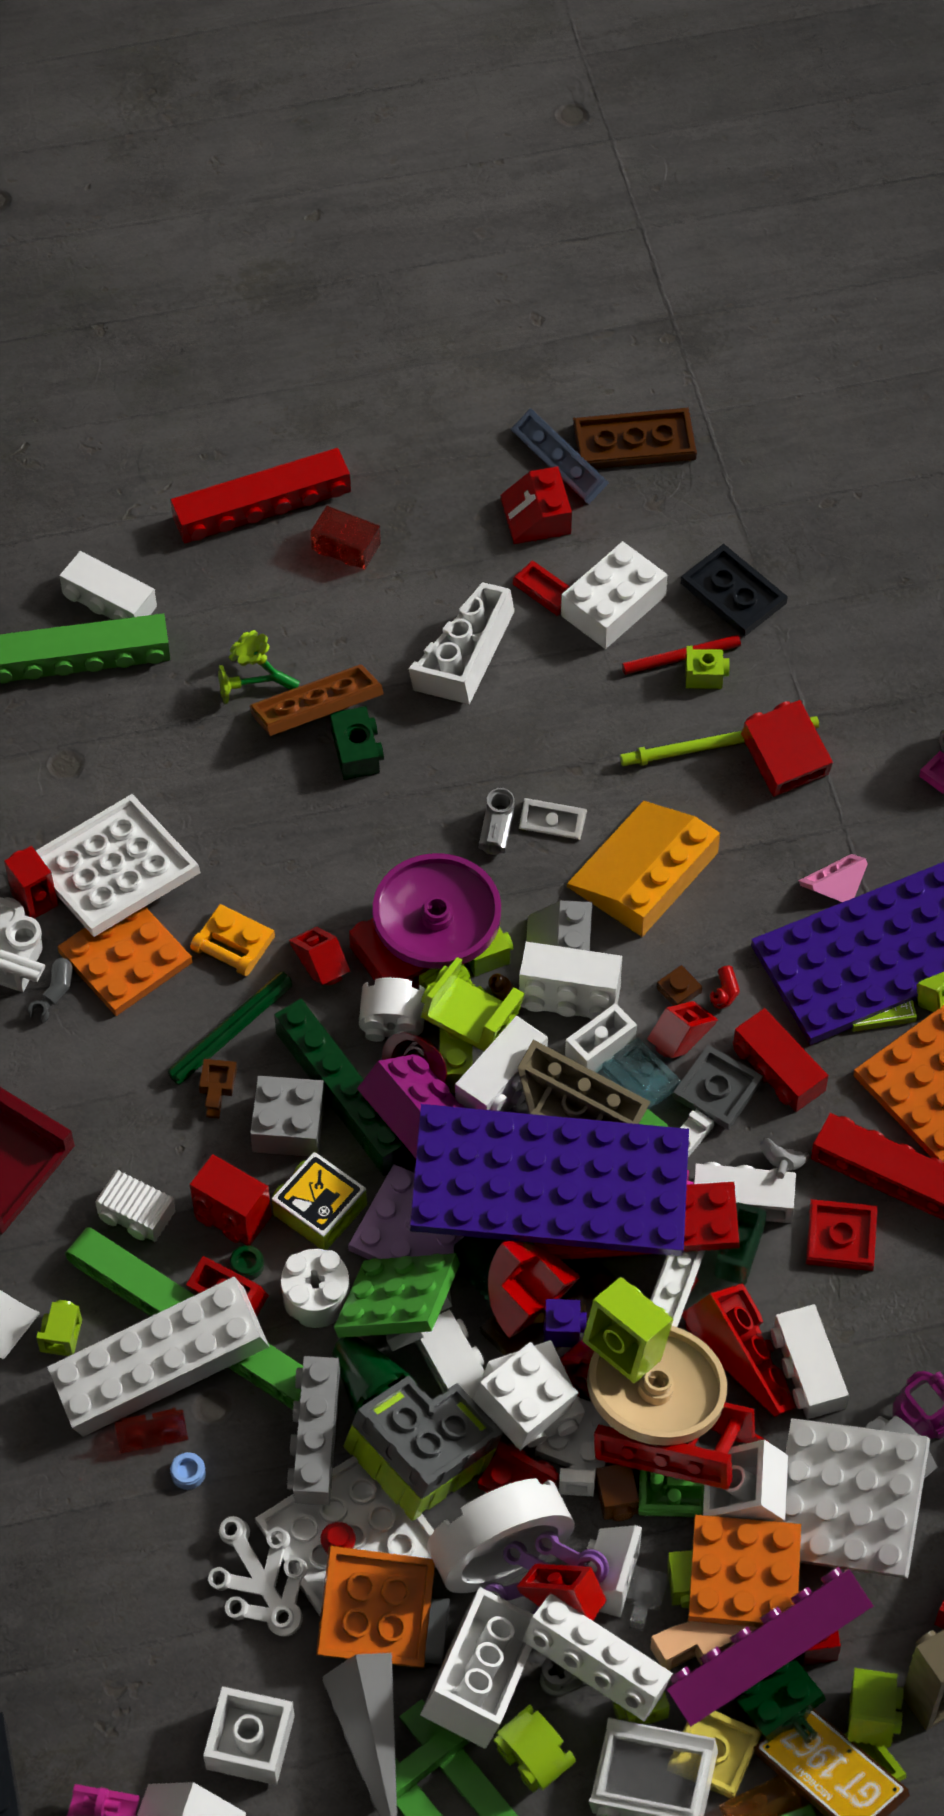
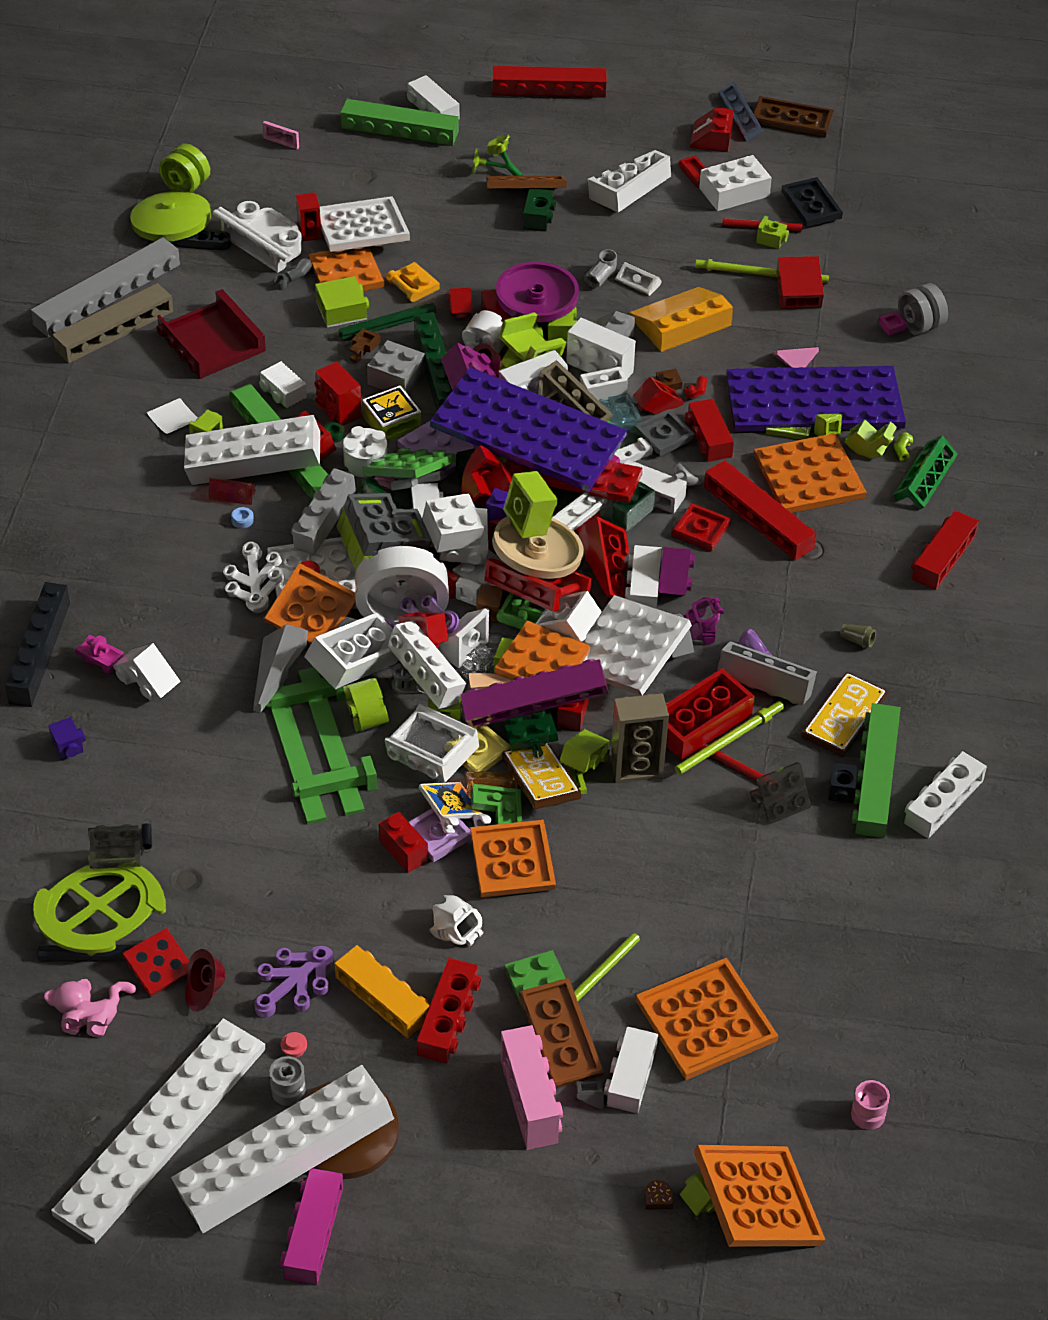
camera: 20 degrees right, 10 degrees down
(149, 1019) = (341, 301): none -> lime piece
(249, 1735) = (203, 645): white brick -> none
(345, 537) = (588, 114): clear red brick -> none
(851, 1332) = (675, 570): none -> magenta brick

